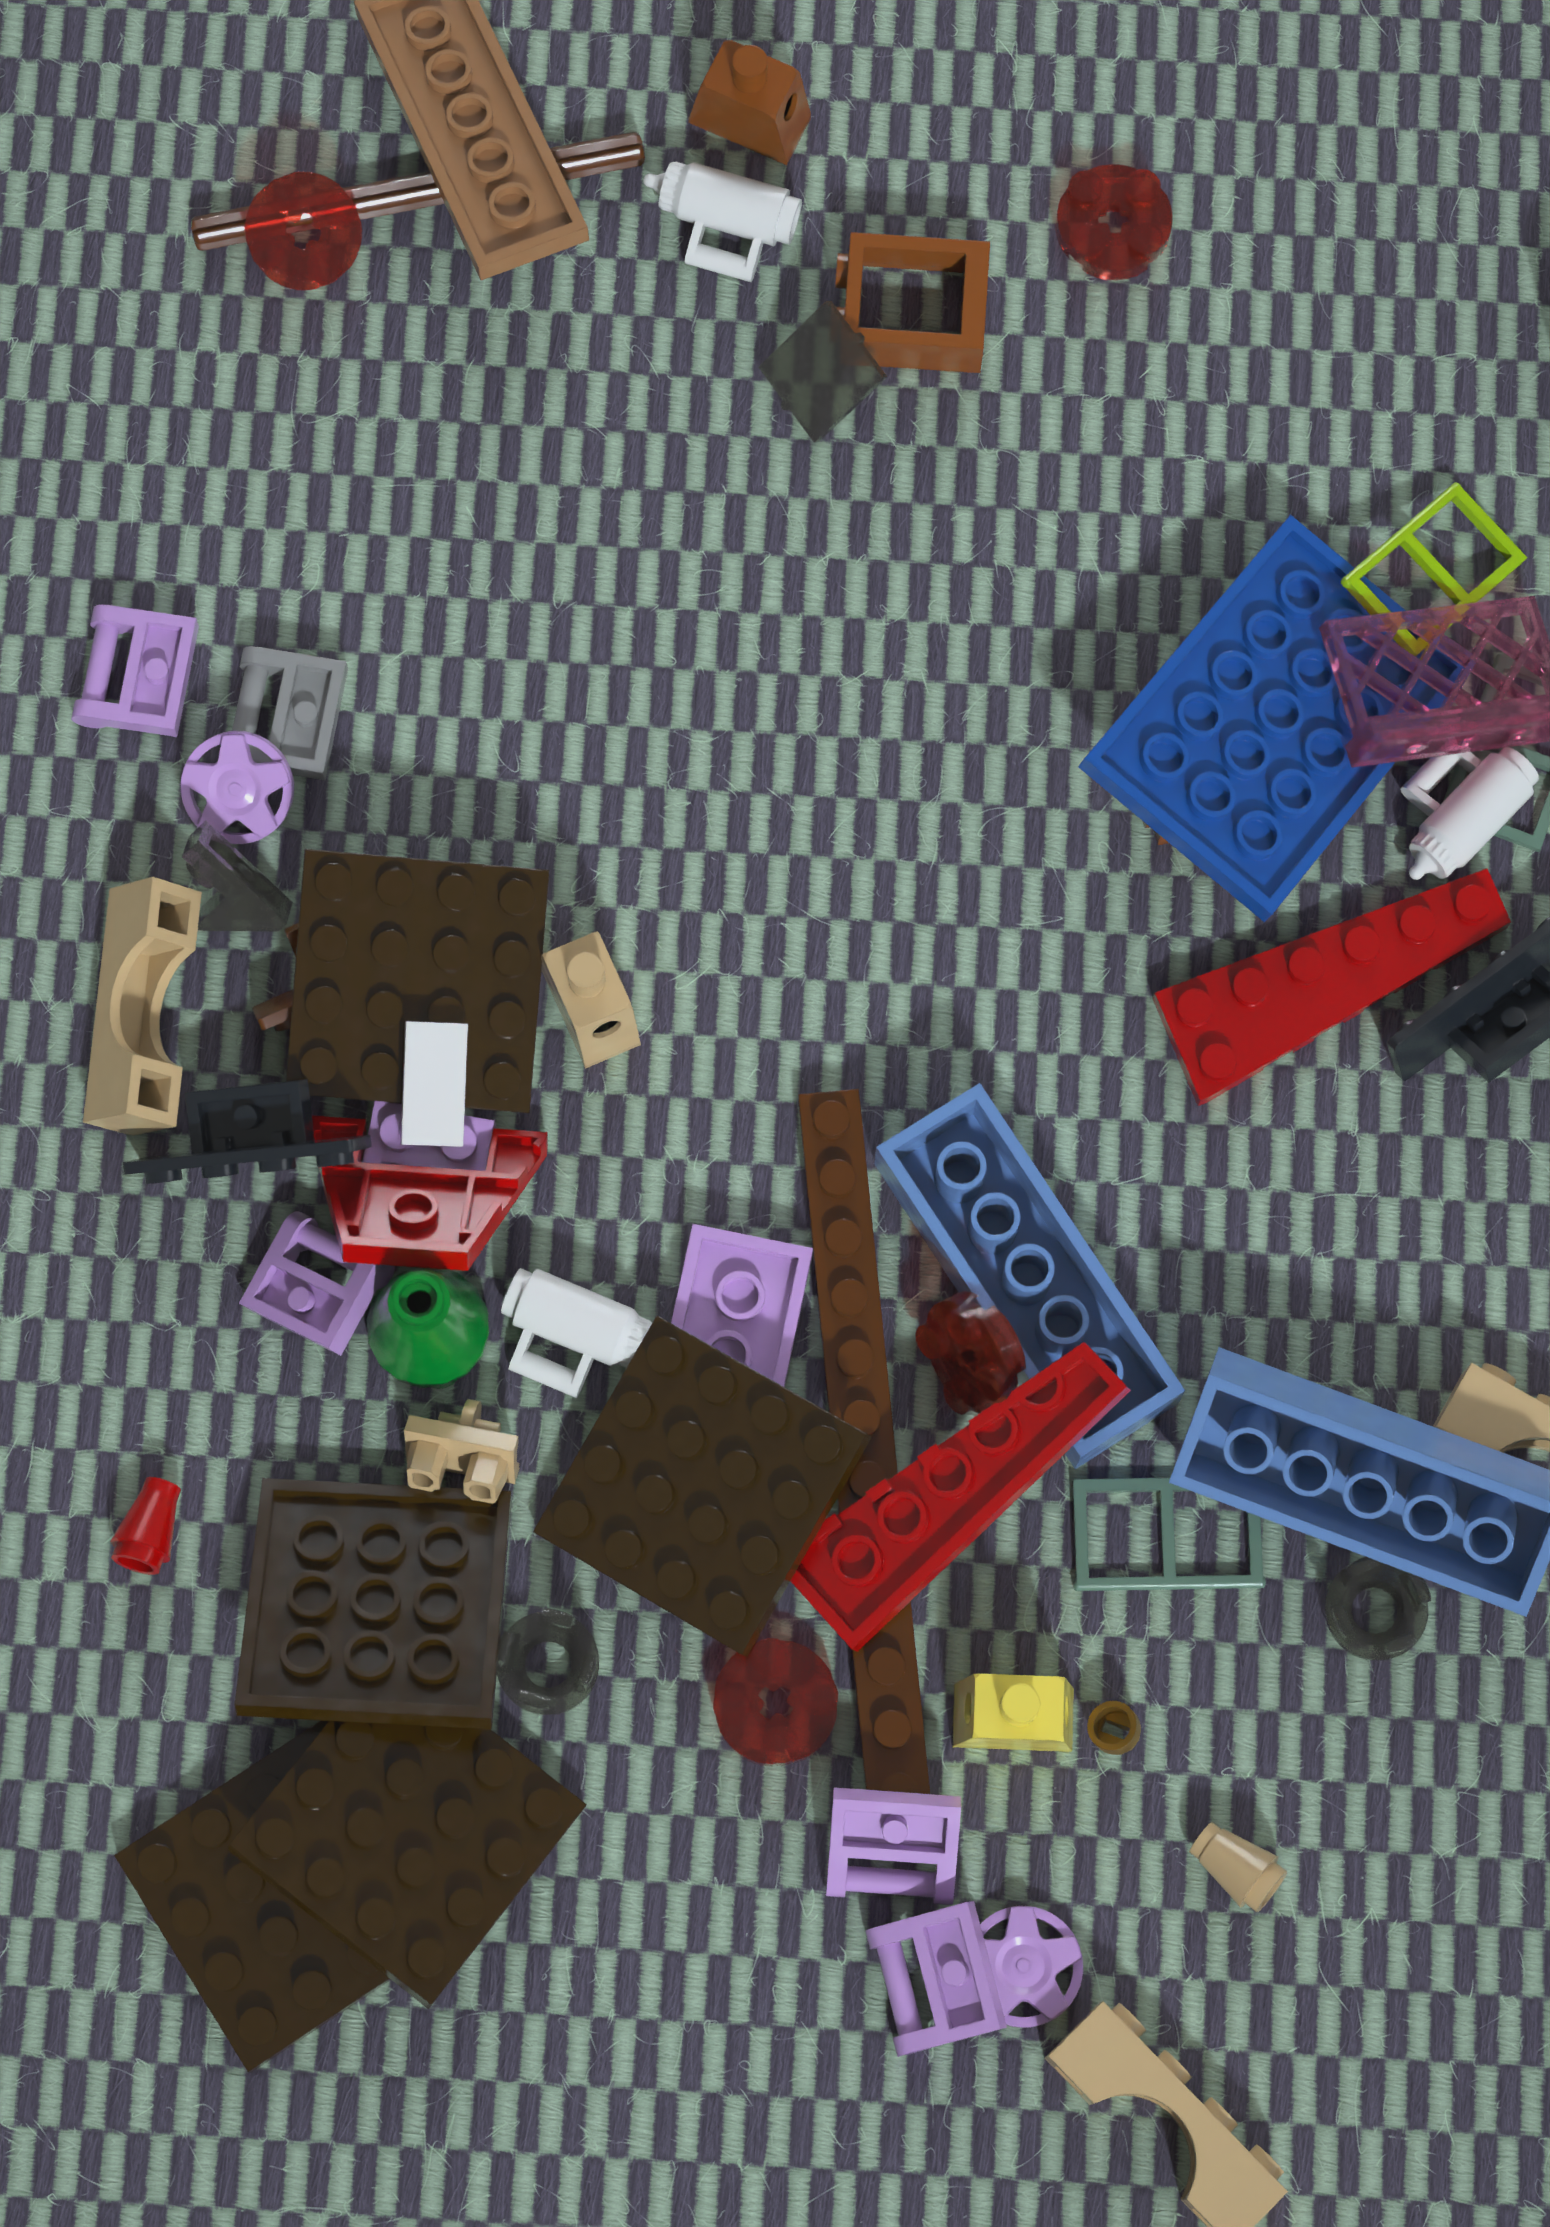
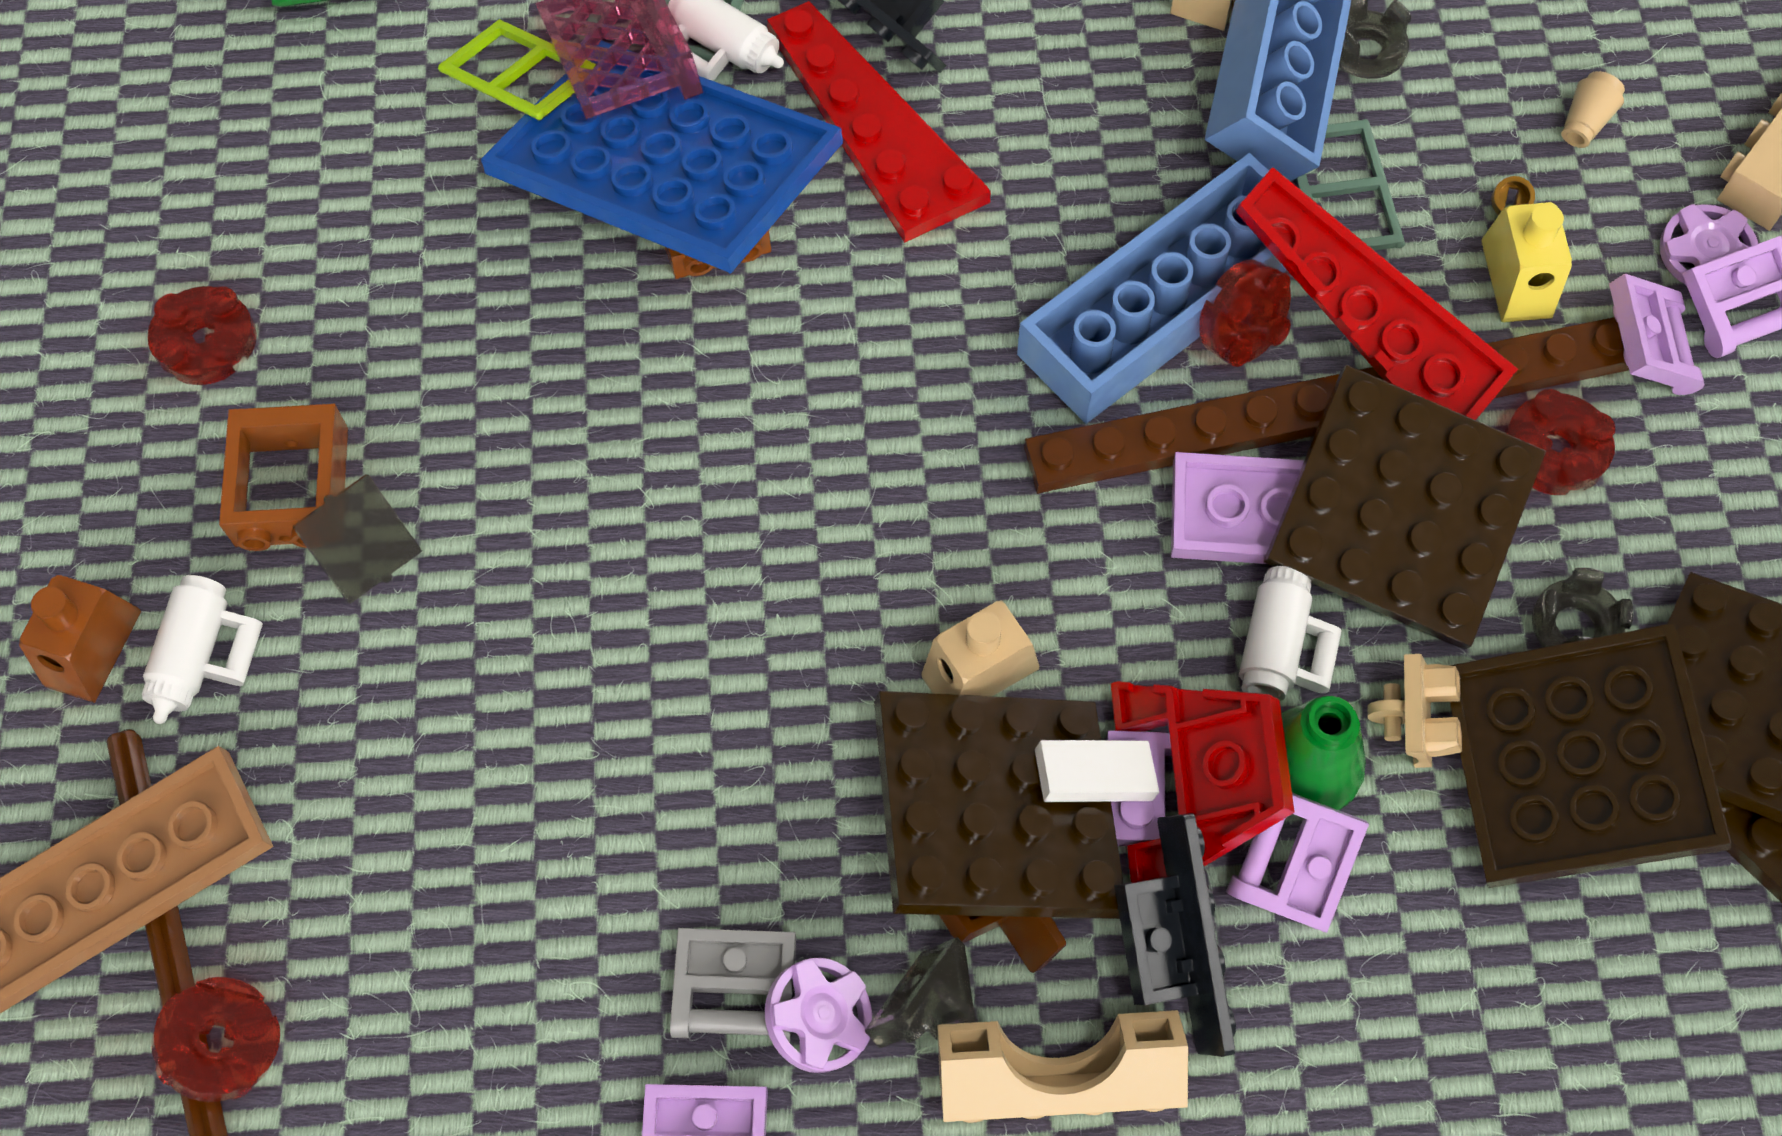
camera: 95 degrees left, 10 degrees down
(148, 1528) = (1558, 982): red cone -> none

